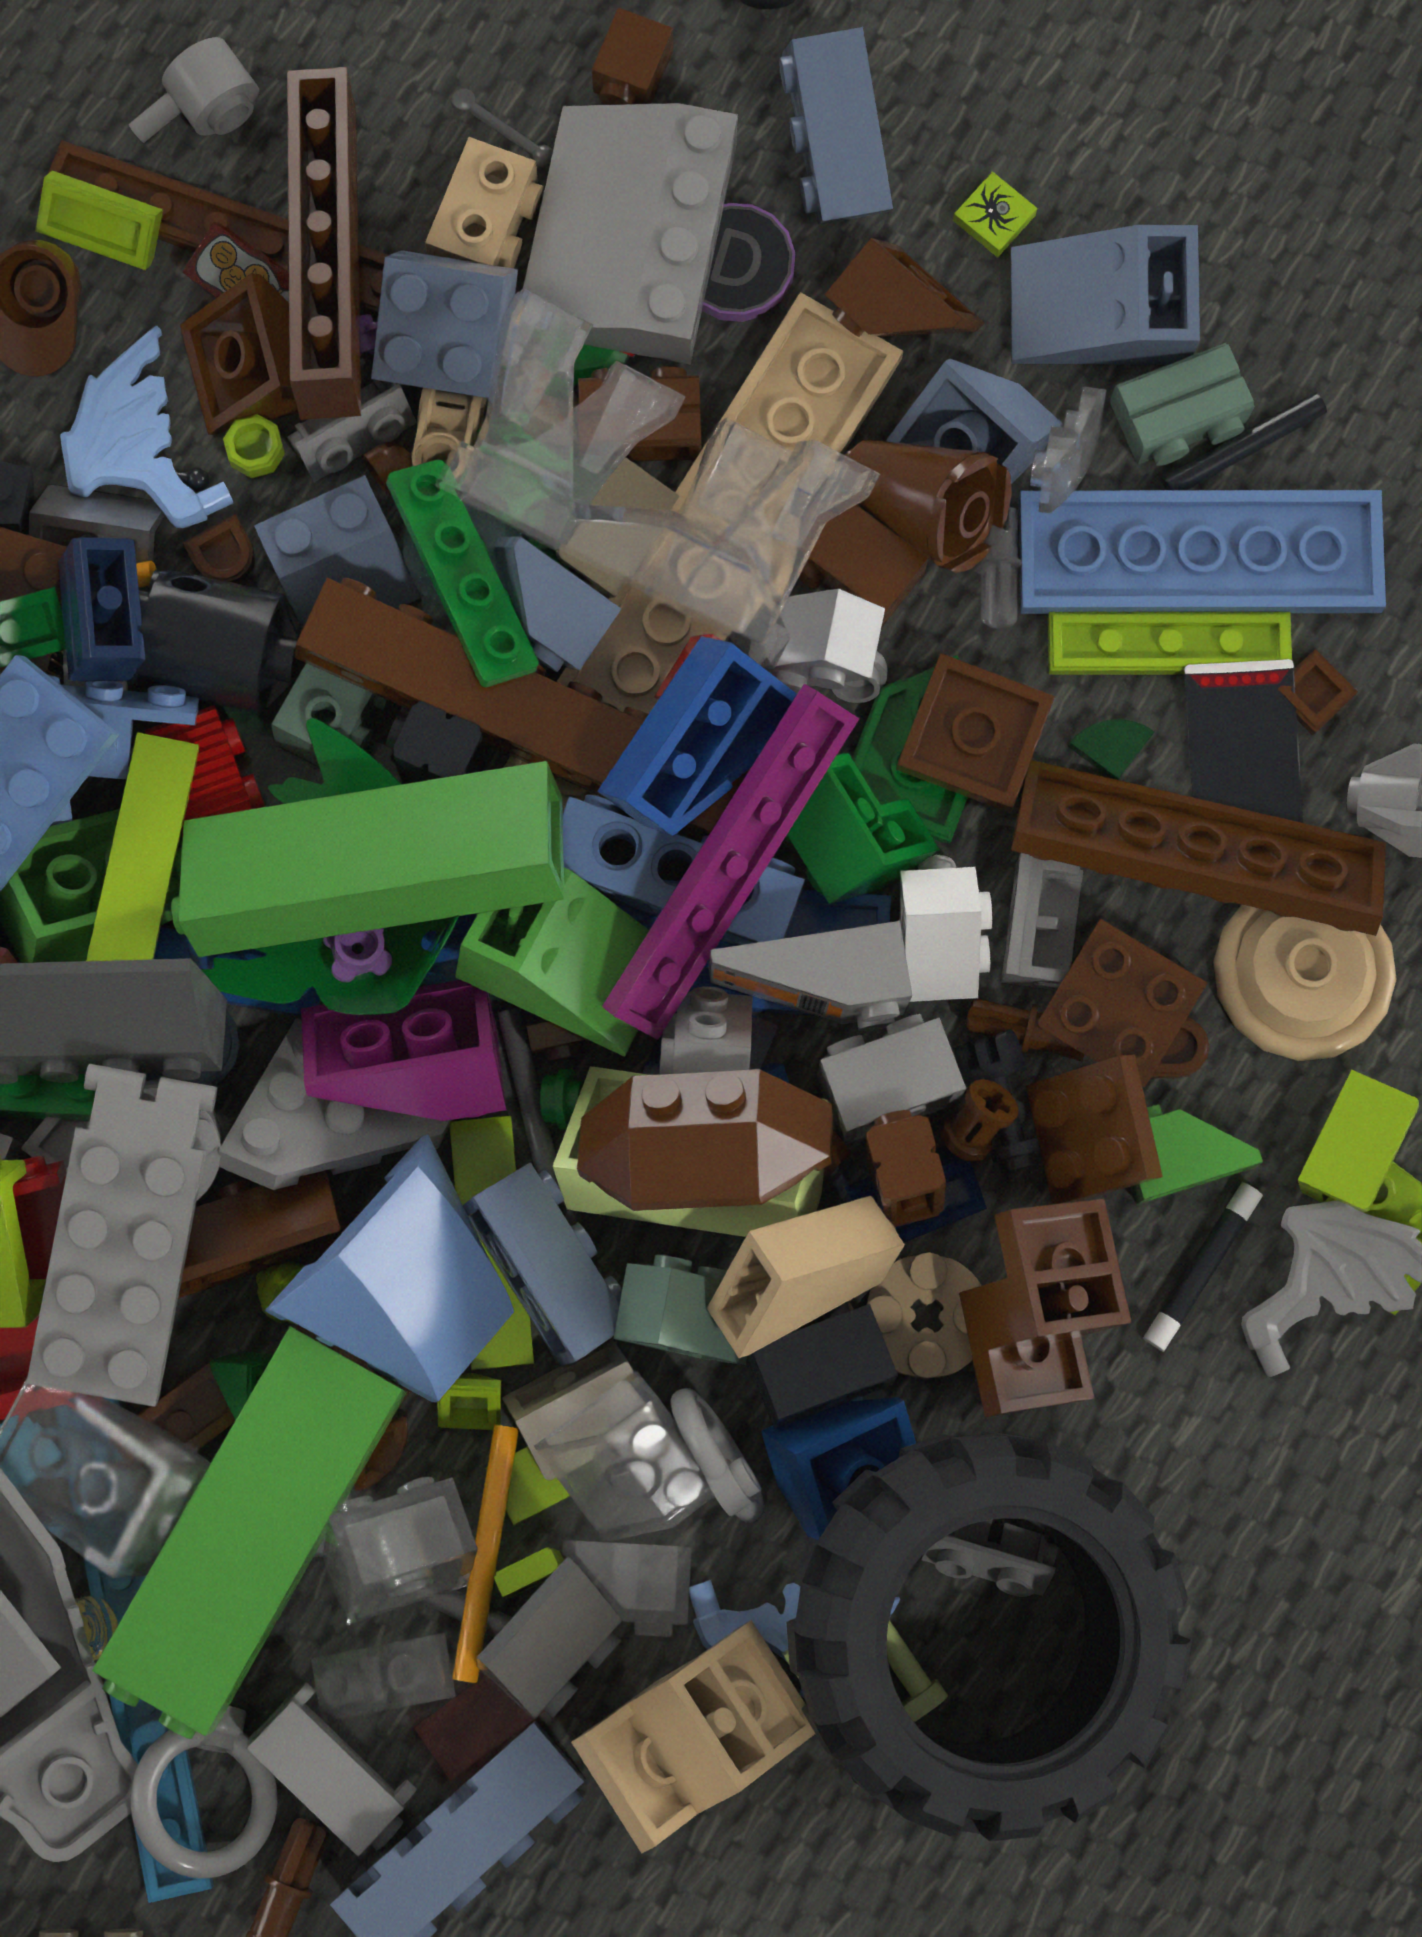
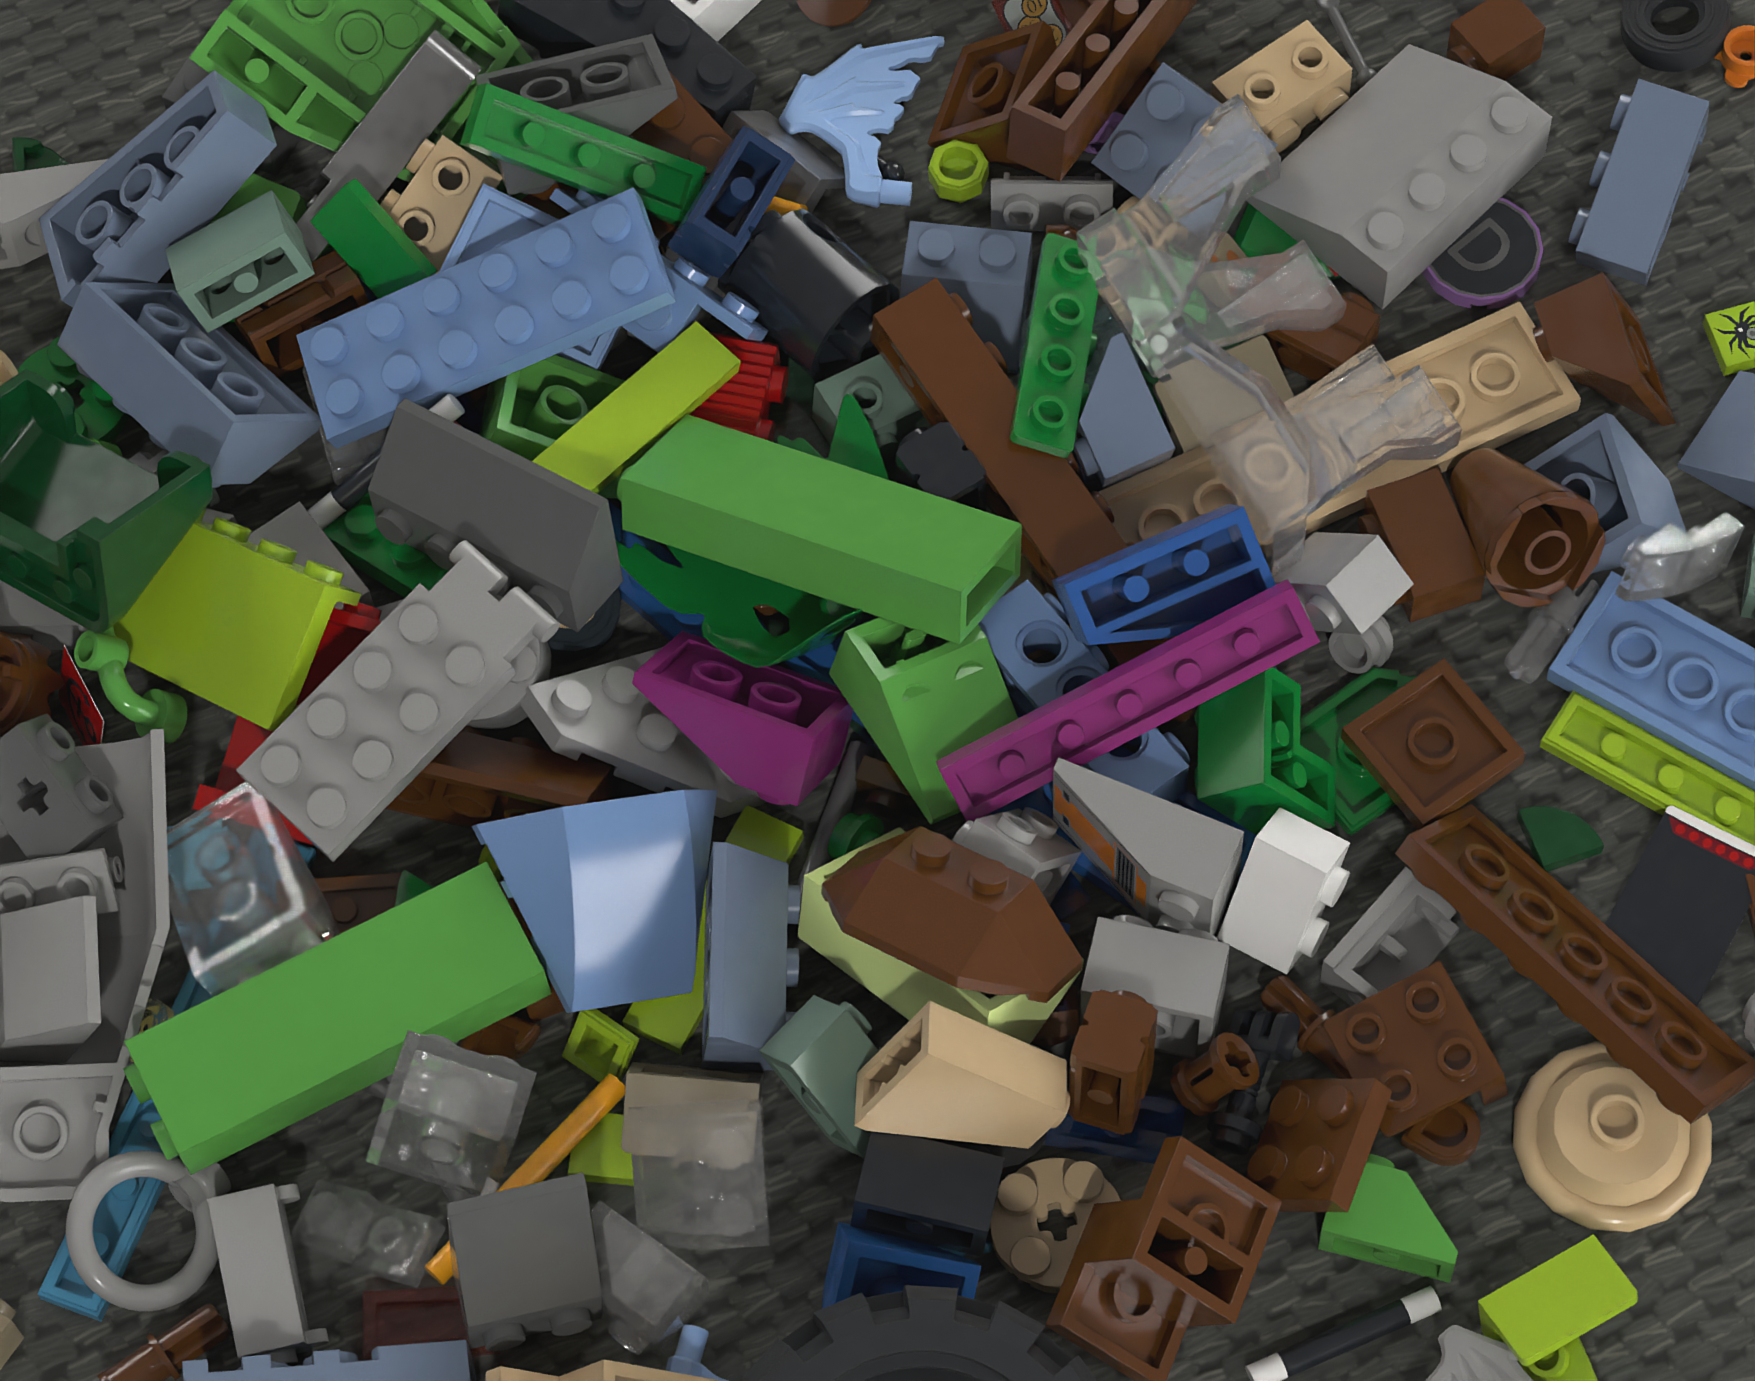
camera: 40 degrees right, 15 degrees down
(222, 551) = (876, 238): reddish brown tile -> none
(349, 964) = (775, 595): medium lavender plate -> none
(717, 1456) = (782, 1211): light grey piece -> none

